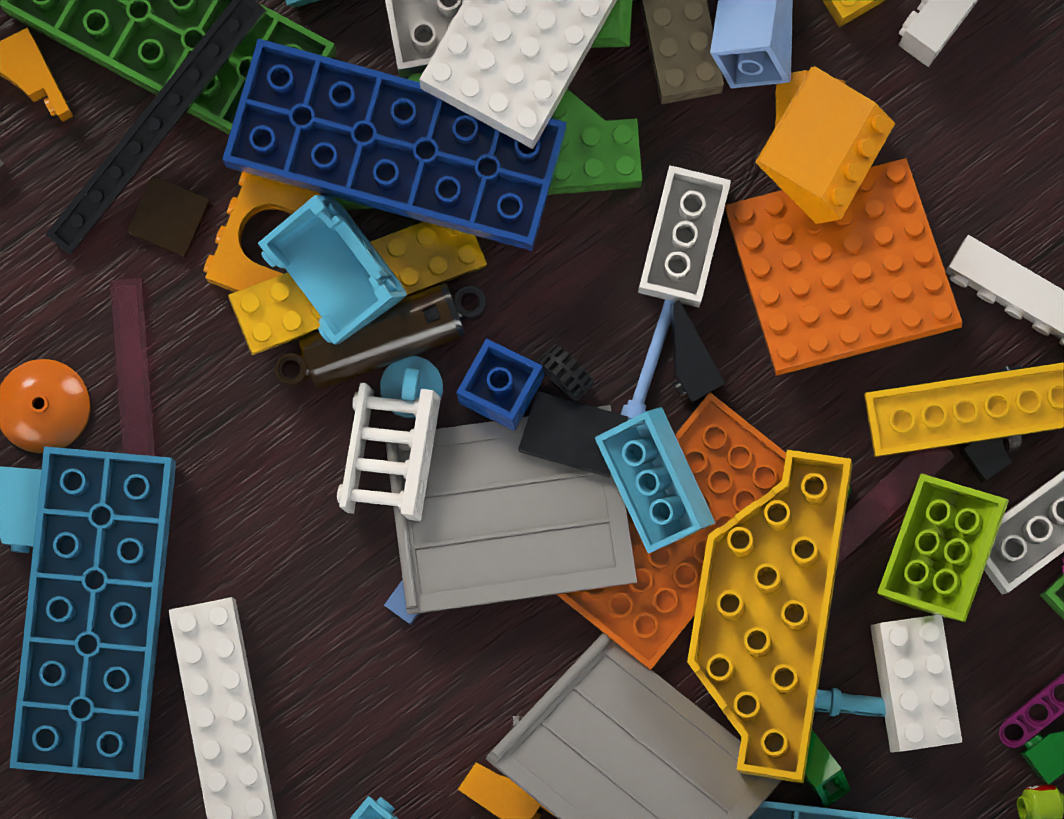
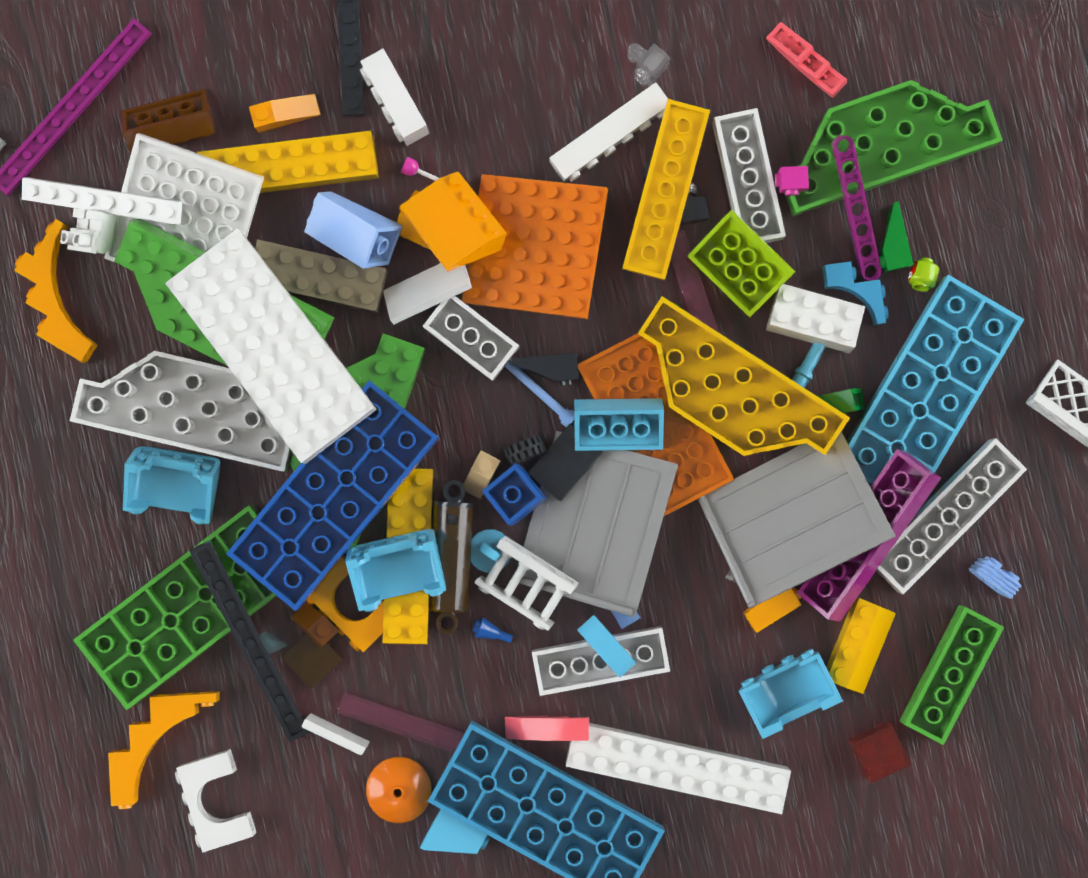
camera: 70 degrees left, 5 degrees up
(81, 288) = (335, 734): none -> white tile
(166, 154) = (271, 642): none -> clear light blue slope
(208, 564) = (547, 728): none -> coral slope
(213, 199) = (314, 624): none -> reddish brown slope
(304, 428) = (485, 629): none -> blue cone
(329, 595) = (580, 666): none -> white brick
(352, 591) = (606, 646): none -> medium azure beam
(509, 329) = (481, 474): none -> tan slope
(717, 149) = (425, 291): none -> white tile
(872, 62) = (411, 168): none -> dark pink hinge
(986, 694) = (870, 293): none -> dark azure arch

